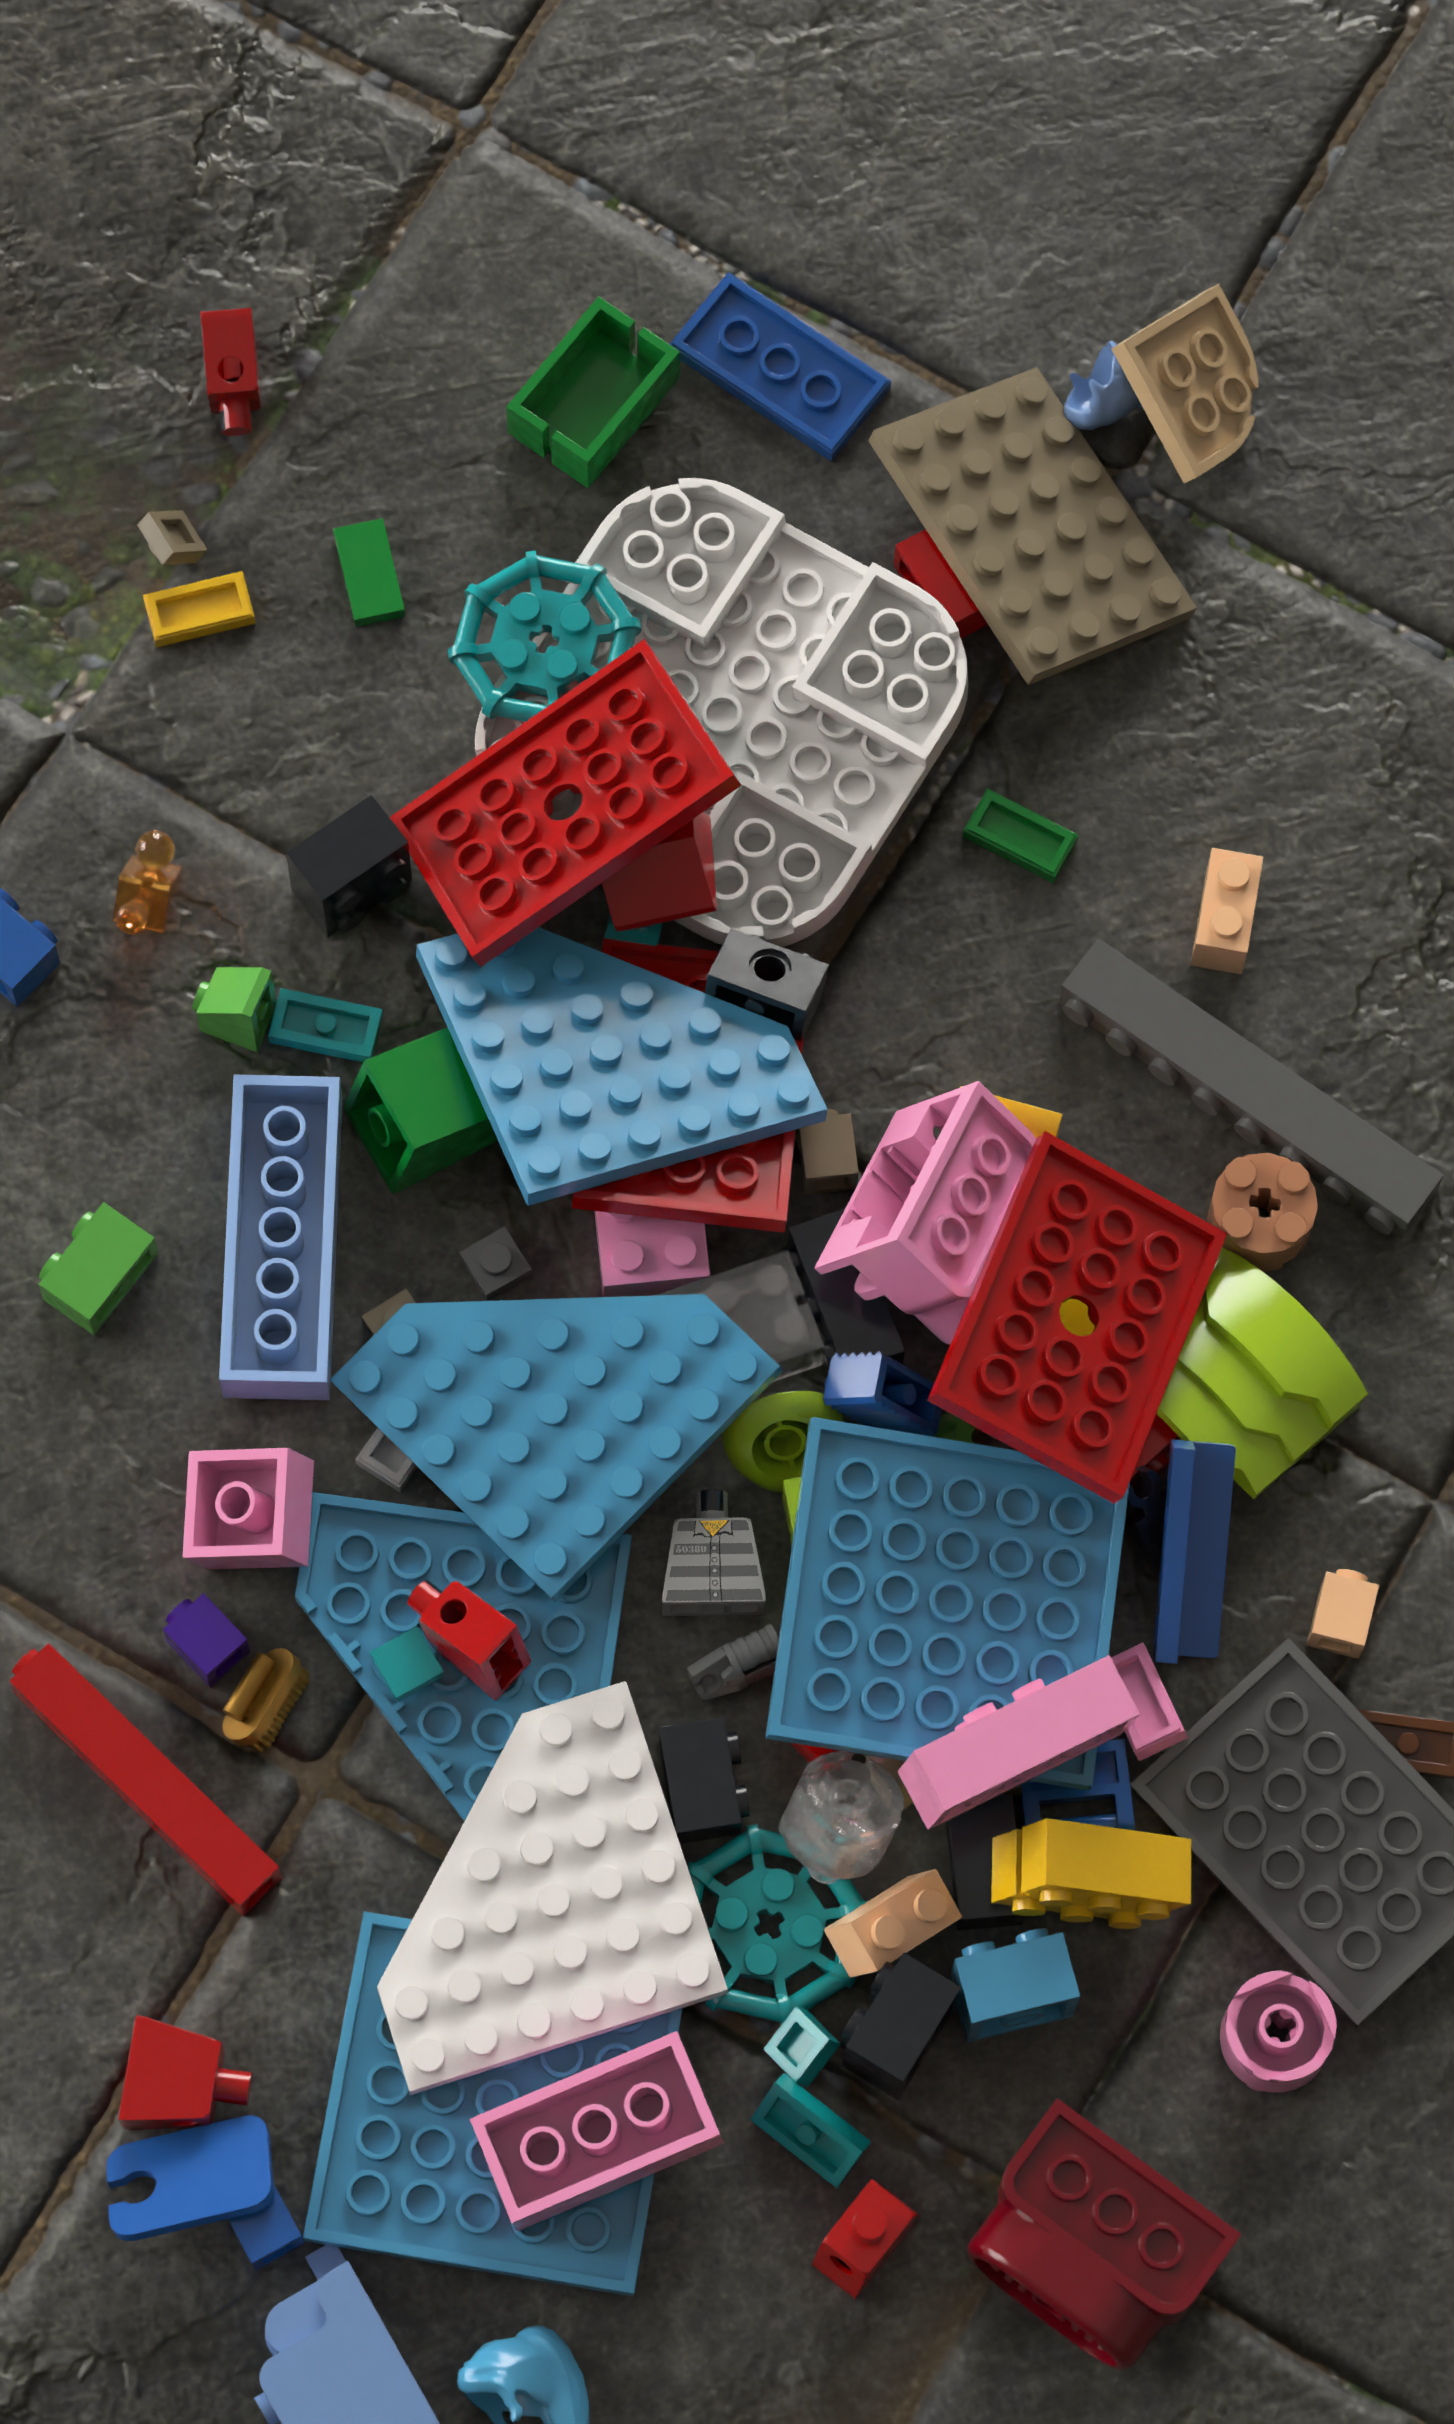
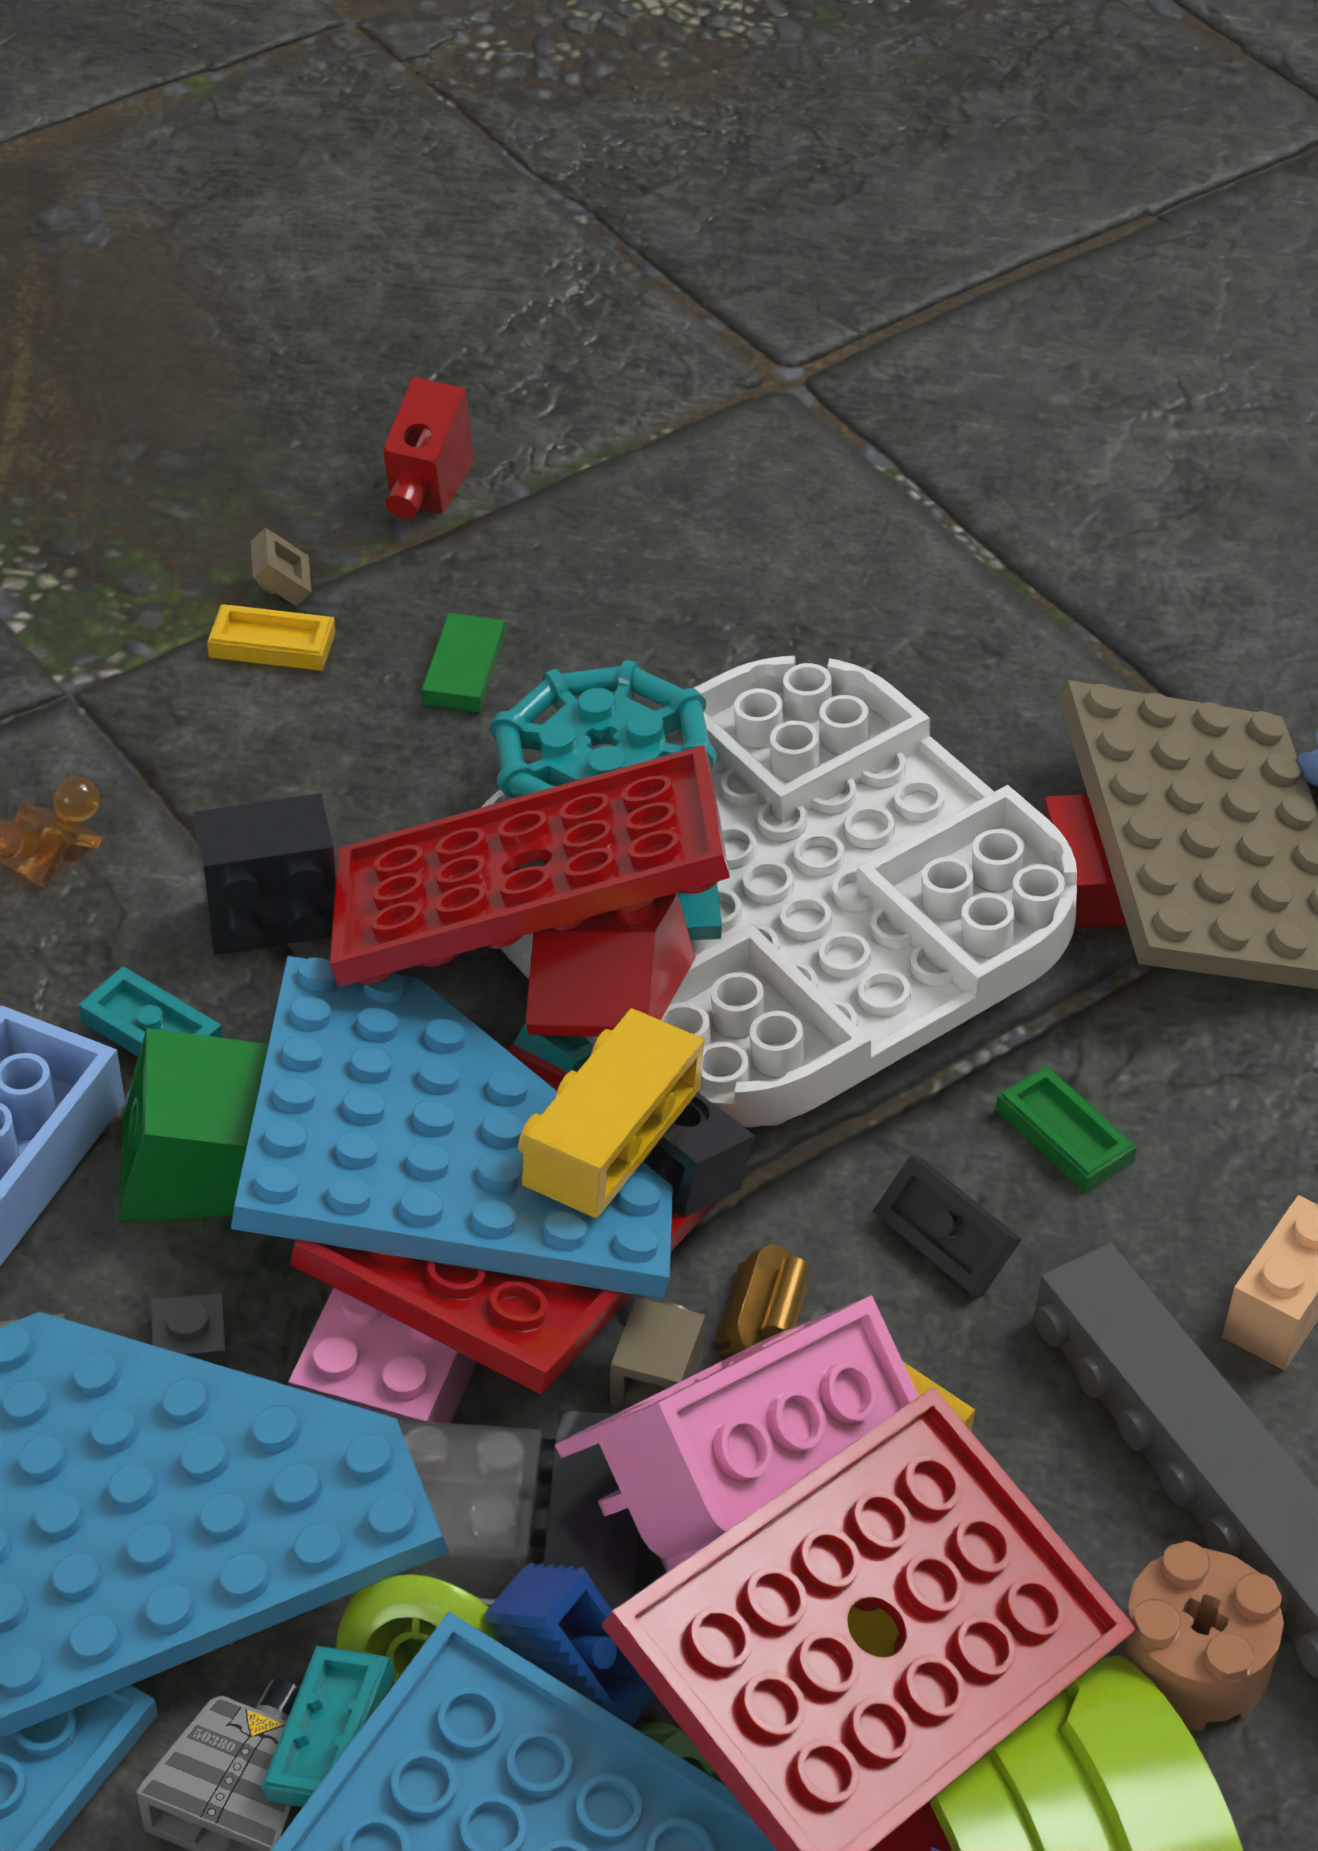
camera: 25 degrees right, 25 degrees down
(237, 1005) = (63, 962): bright green slope -> none
(593, 392) = (782, 580): green piece -> none
(734, 1002) = (611, 1112): none -> yellow brick
(762, 1513) = (328, 1713): none -> teal plate
(780, 366) = (994, 636): blue tile -> none
(874, 1076) = (763, 1299): none -> pearl gold piece
(974, 961) = (947, 1225): none -> black plate

